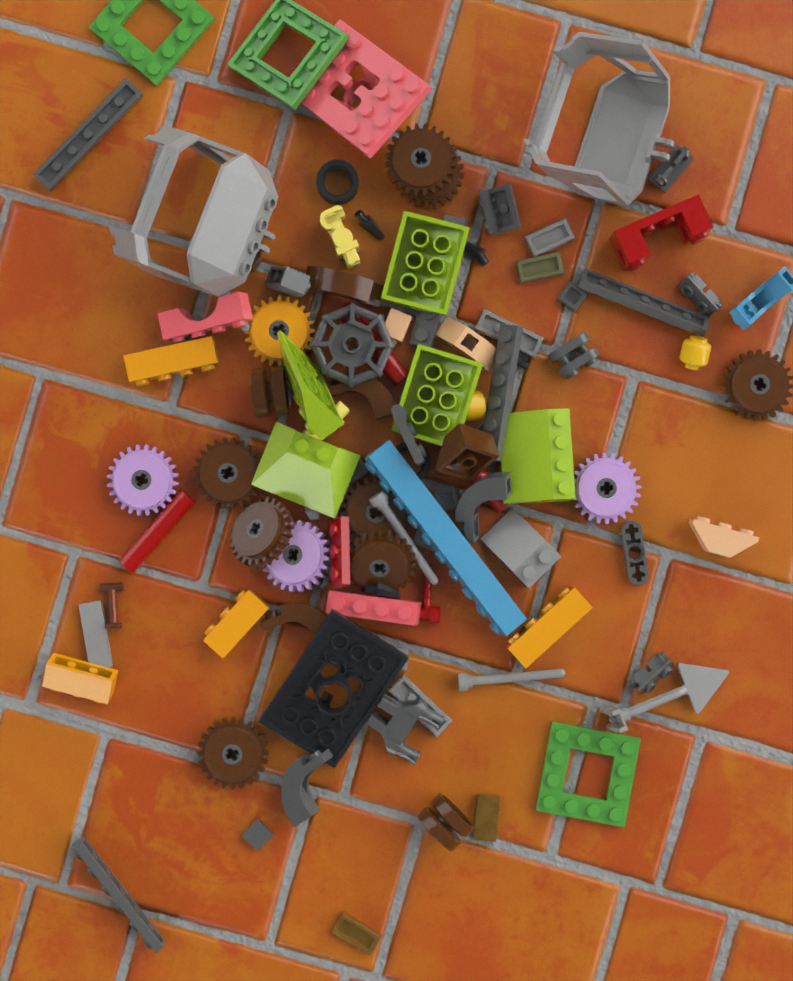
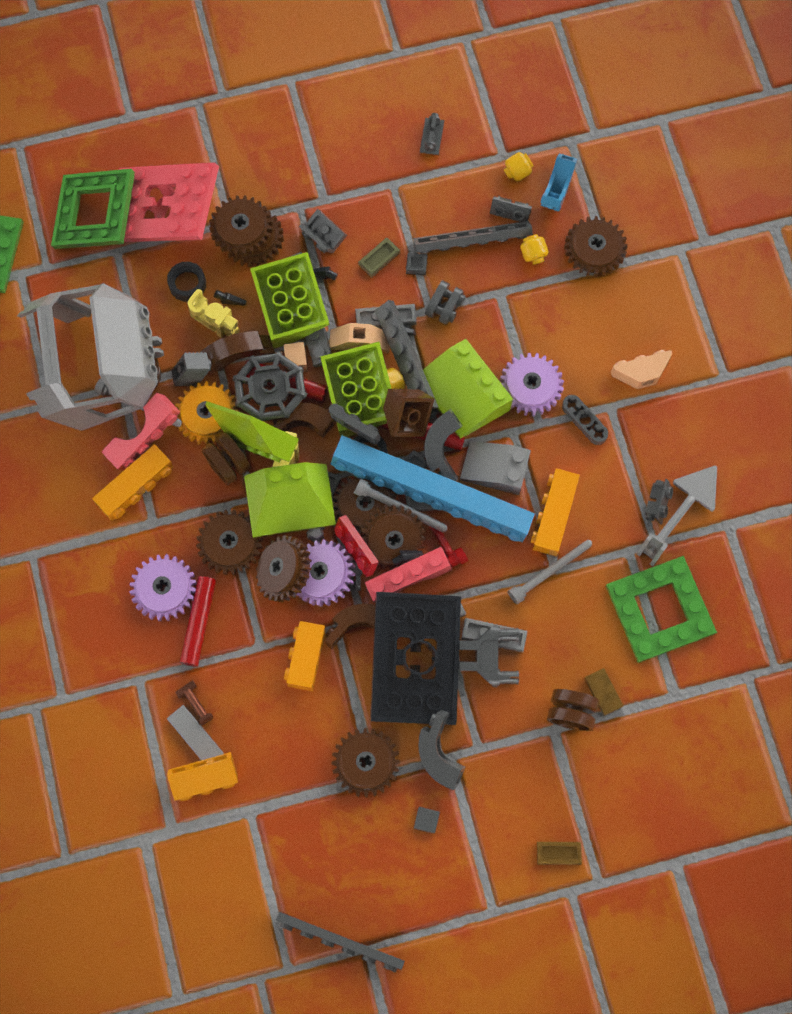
camera: 25 degrees left, 15 degrees down
(549, 238) = (373, 232): light grey tile -> none
(622, 125) = (374, 115): light grey windscreen -> none
(688, 217) = (465, 157): red plate -> none
(735, 255) = (518, 166): none -> yellow head

